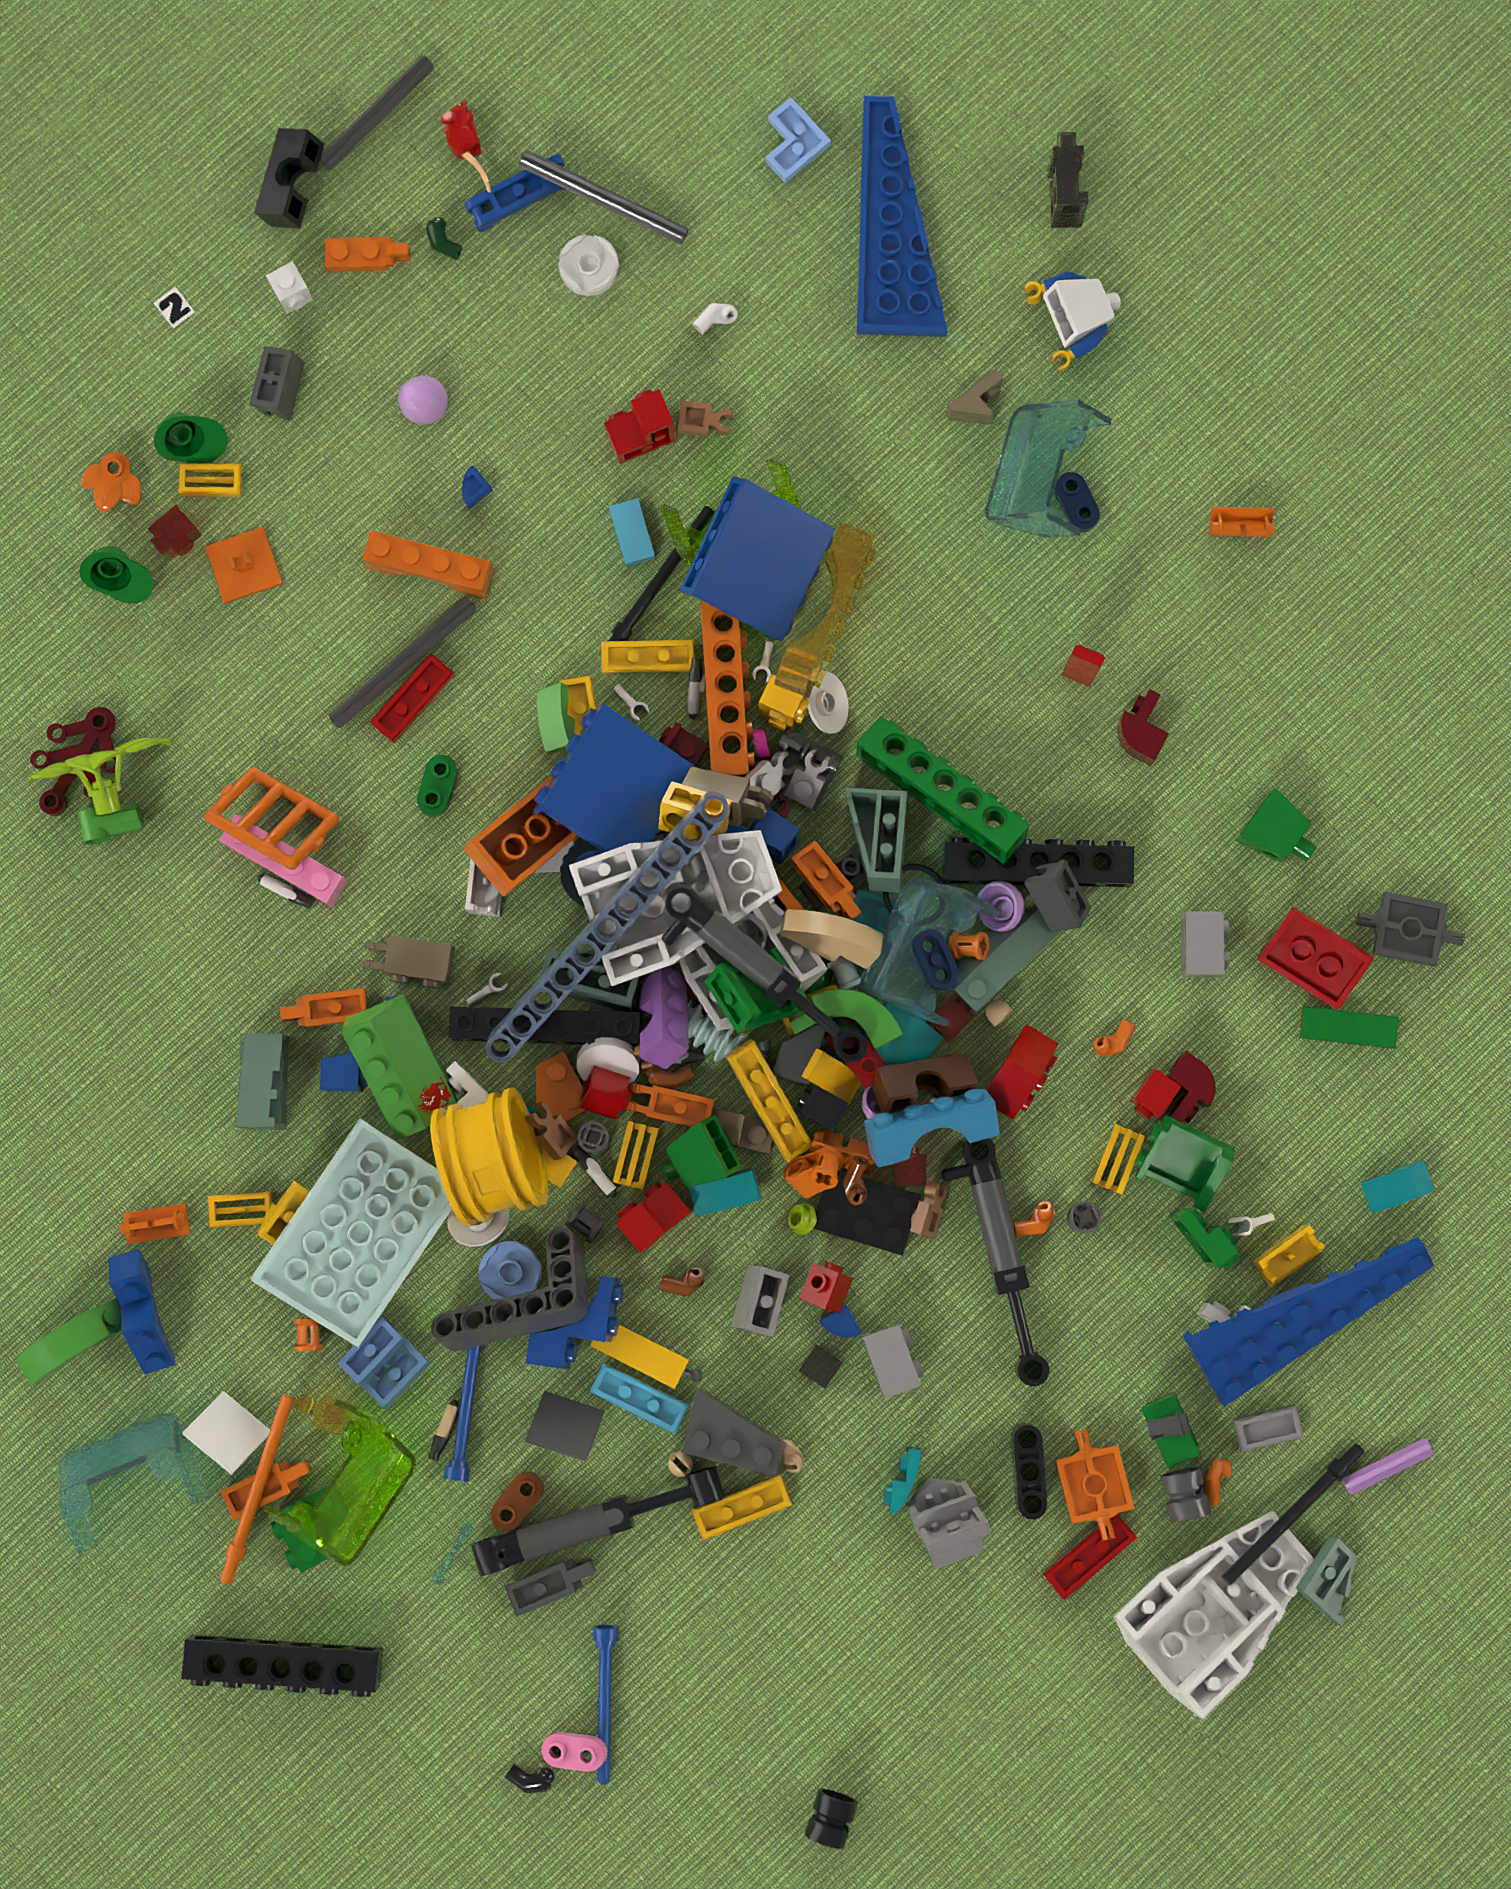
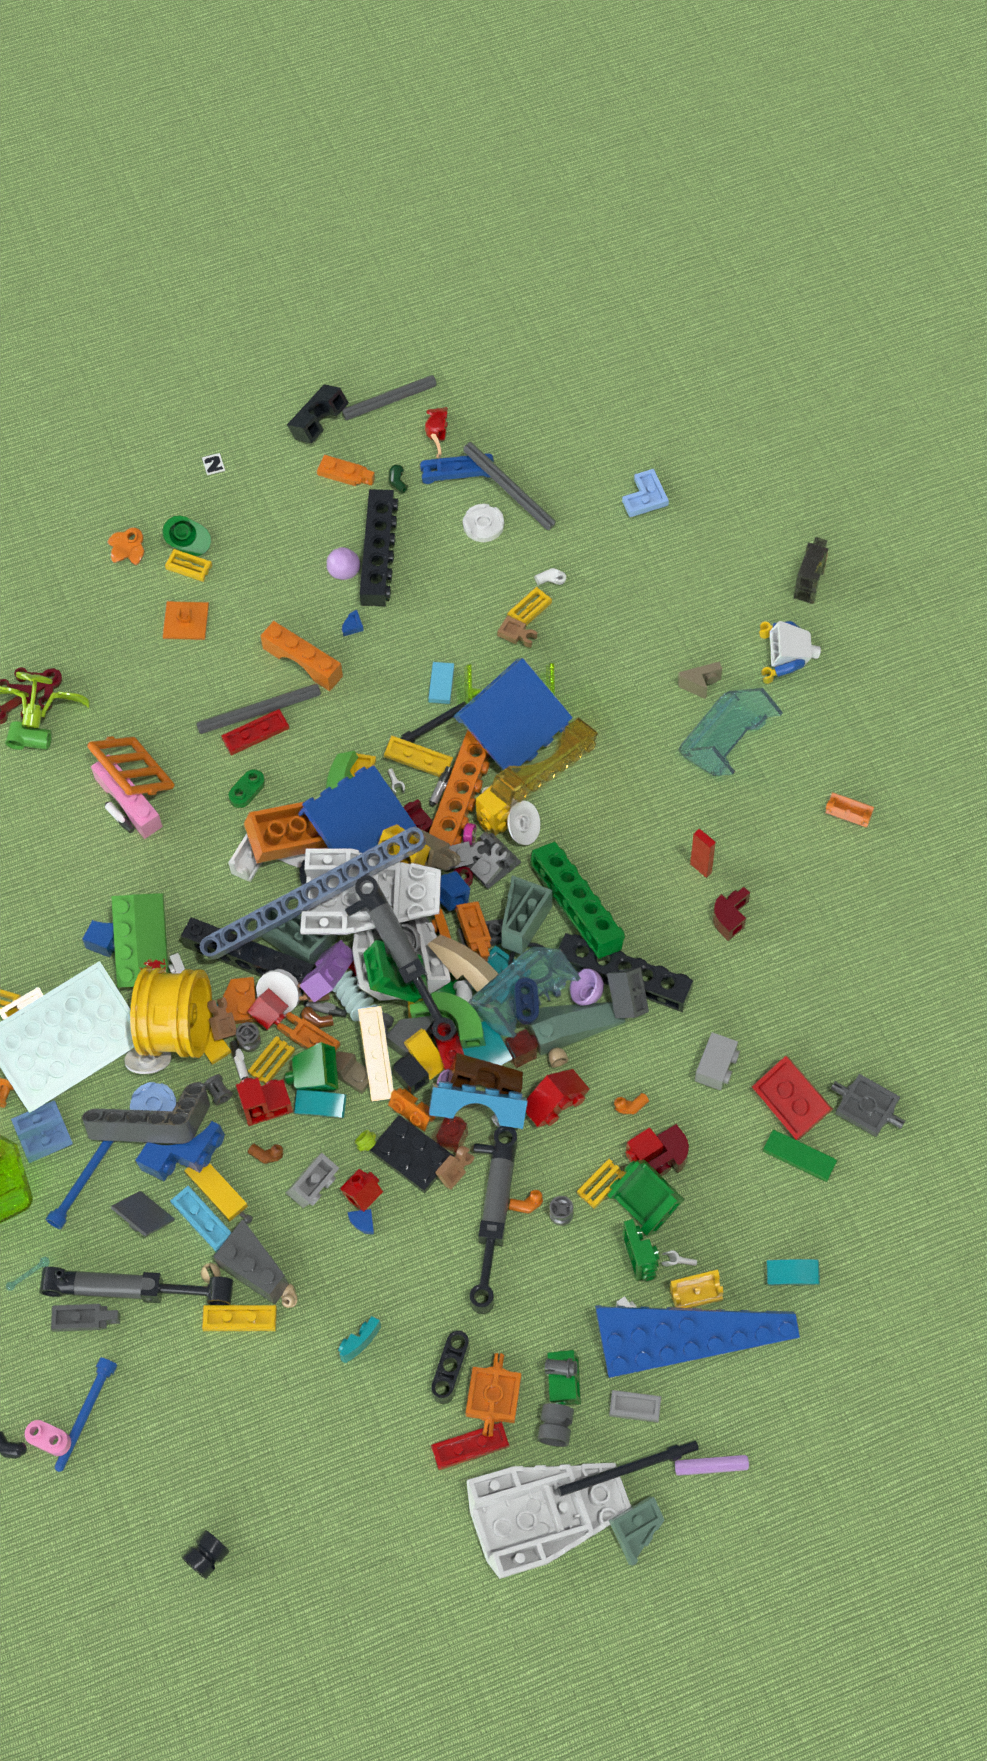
camera: 20 degrees right, 20 degrees down
(116, 575) = (102, 596): green piece -> none
(174, 533) = (151, 585): clear red brick -> none
(263, 1082) = (47, 924): sand green wedge -> none
(277, 382) = (256, 523): dark grey hinge -> none
(289, 287) = (289, 473): white brick -> none
(326, 1007) = (101, 892): orange hinge -> none
(413, 960) = (181, 885): dark tan hinge -> none
(433, 287) = (370, 592): none -> black brick
(441, 1438) = (56, 1193): piece -> none
(487, 990) = (229, 915): white hand -> none
(516, 1501) = (88, 1256): dark orange plate -> none
(642, 429) = (473, 623): red brick -> none
(694, 397) = (531, 614): none -> yellow tile
(814, 1171) = (387, 1109): orange piece -> none
(820, 1366) = (336, 1244): clear smoke tile -> none
(853, 1181) = (410, 1126): dark orange arm -> none
(892, 1360) = (386, 1254): light grey brick -> none
(895, 265) = (681, 581): blue wing -> none
(948, 1520) = (377, 1381): light grey piece -> none
(979, 945) = (553, 1002): orange bush -> none
(1077, 500) = (743, 760): dark blue plate -> none
(1213, 1479) = (580, 1424): orange arm -> none
(1277, 830) = (798, 1008): green torso -> none

